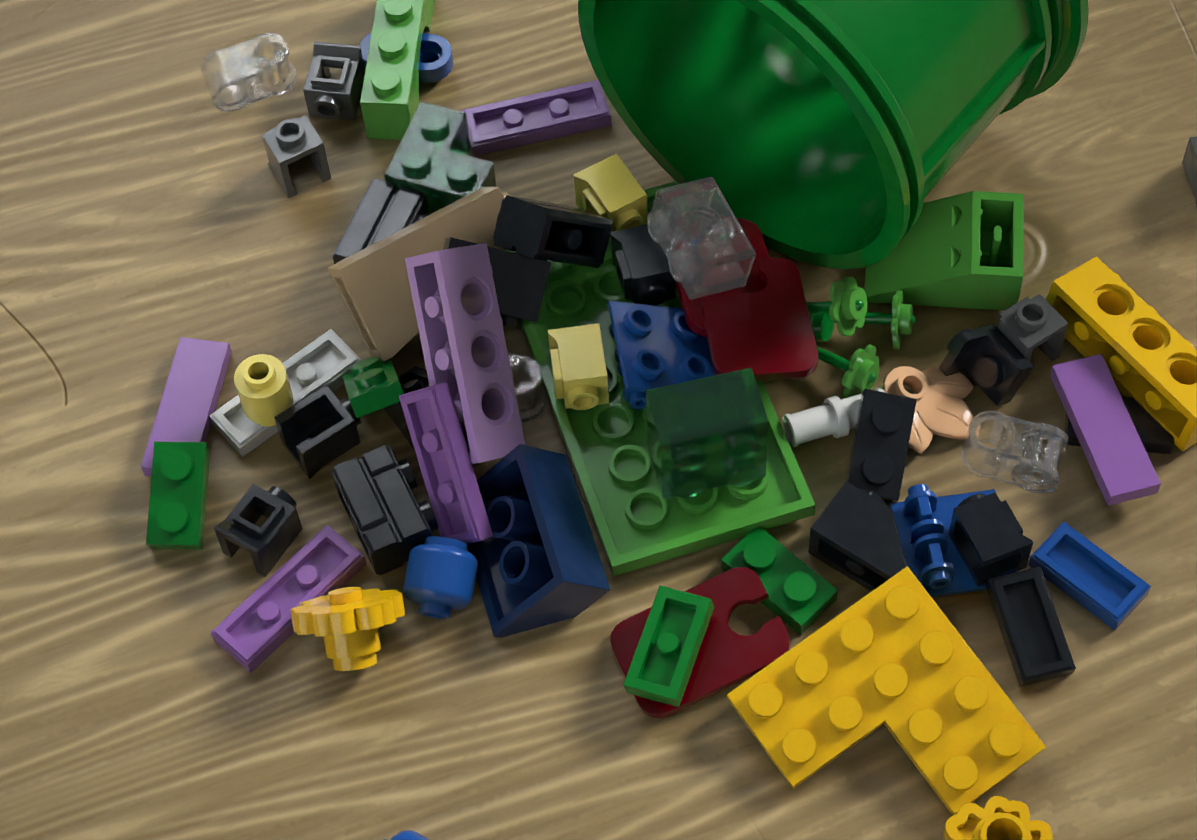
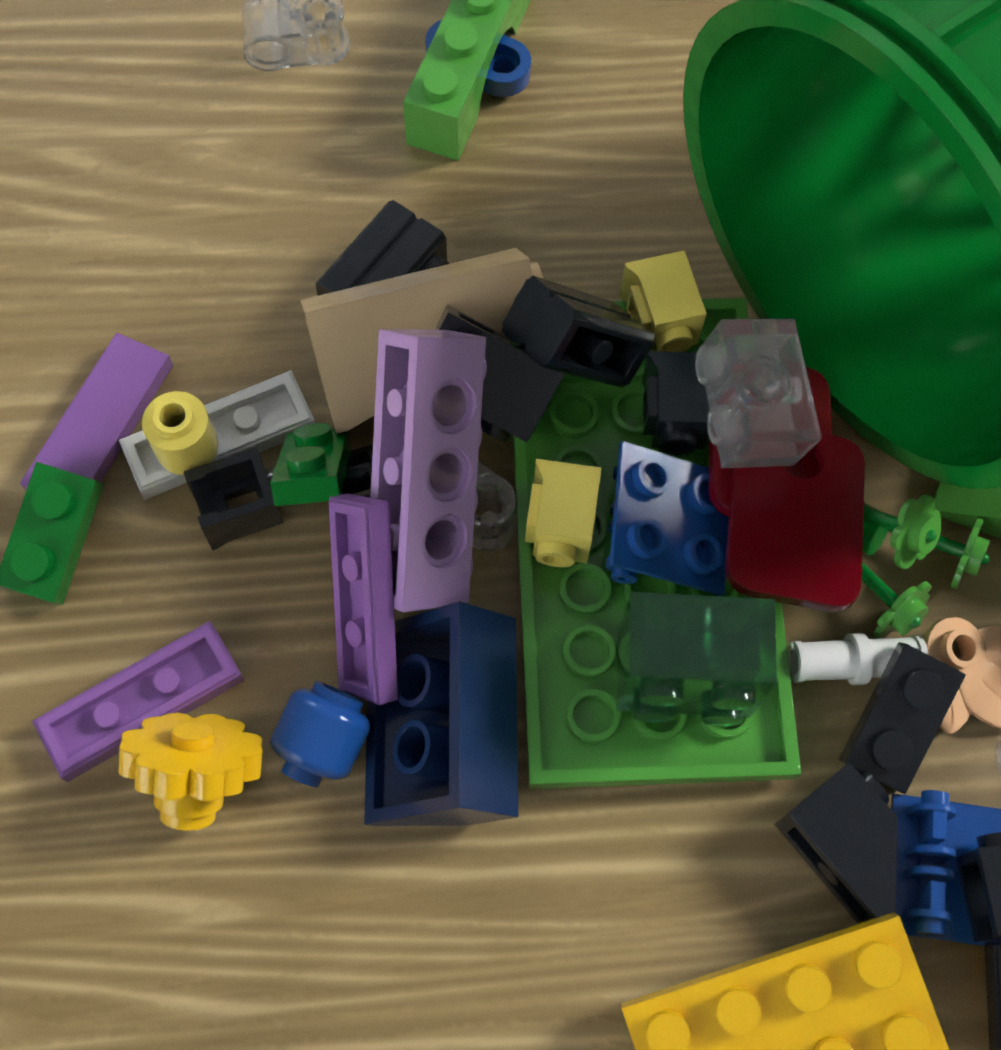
camera: 10 degrees right, 10 degrees up
(274, 536) = (144, 618): black window -> none
(291, 142) = (310, 129): dark grey window -> none
(334, 97) = (375, 84): dark grey window -> none
(383, 507) = (280, 622): black brick -> none
(436, 158) = (471, 196): brick -> none
(537, 117) = (605, 172): medium lavender tile -> none
(669, 646) = (568, 918): green plate -> none
(723, 655) = (587, 919): dark red piece -> none
(792, 586) = (729, 854): green plate -> none

